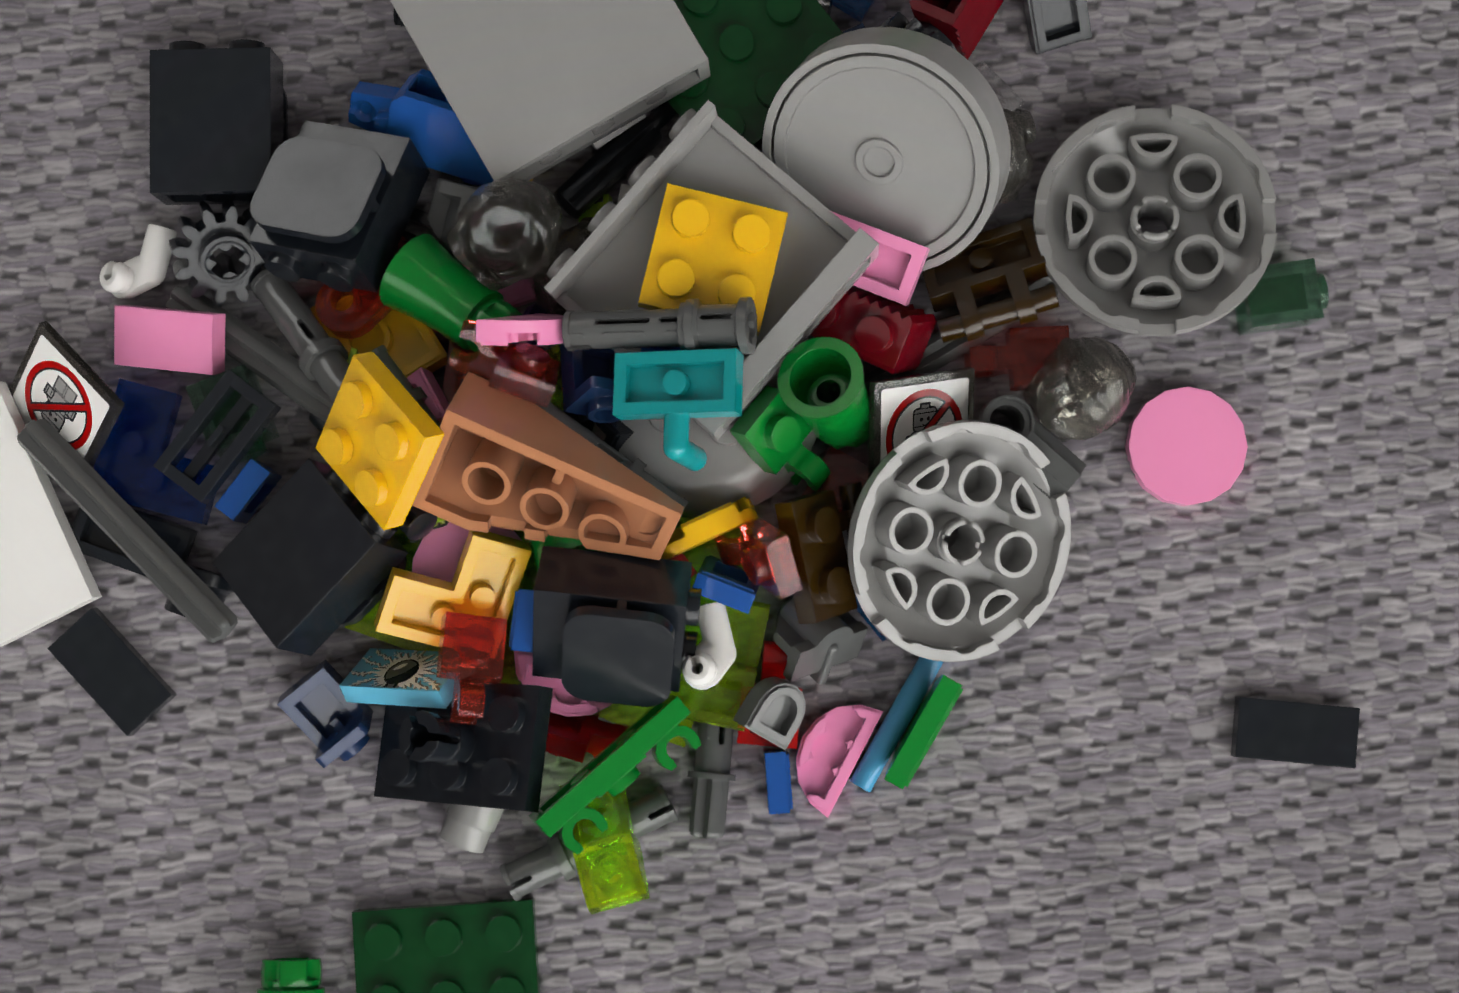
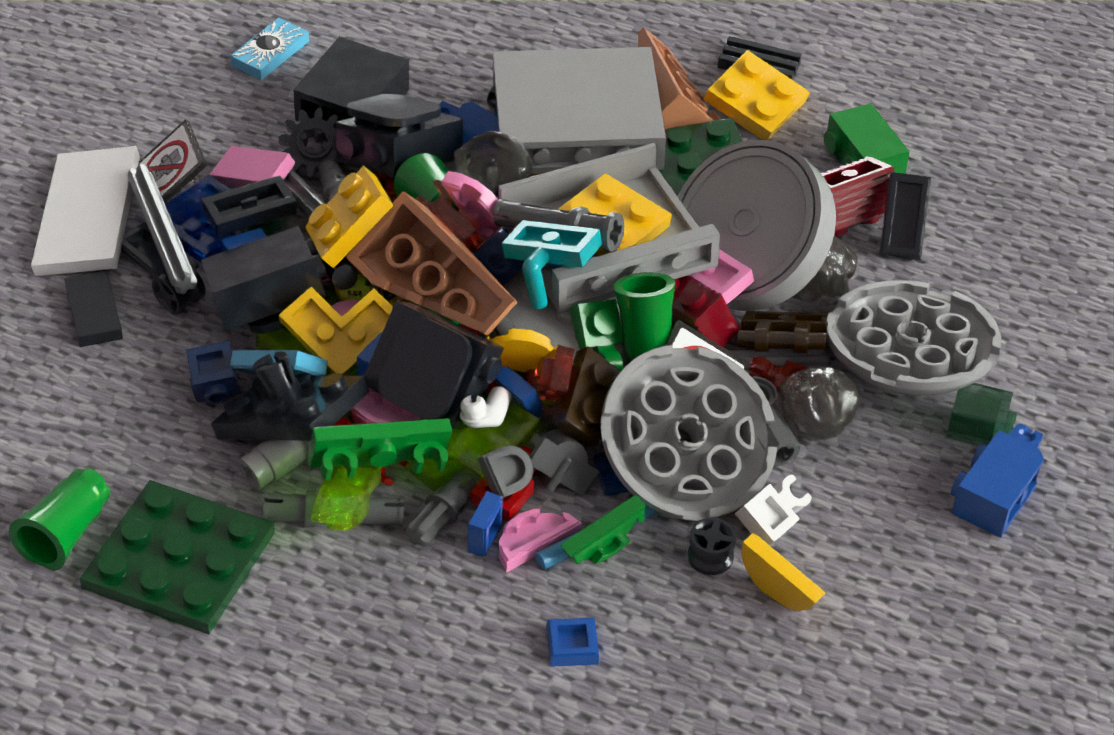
camera: 20 degrees right, 40 degrees down
(46, 71) = (269, 48): none -> medium azure tile
(143, 271) = (269, 141): white arm -> none
(471, 655) = (328, 347): clear red plate -> none
(953, 884) = (572, 642): none -> blue tile
(1060, 670) = (703, 538): none -> black wheel
(1092, 585) = (772, 510): none -> white plate
(1156, 687) = (778, 576): none -> yellow tile
(1186, 446) = (877, 473): bright pink tile -> none
(1295, 732) = (874, 657): black tile -> none
(1341, 388) = (999, 480): none -> blue hinge

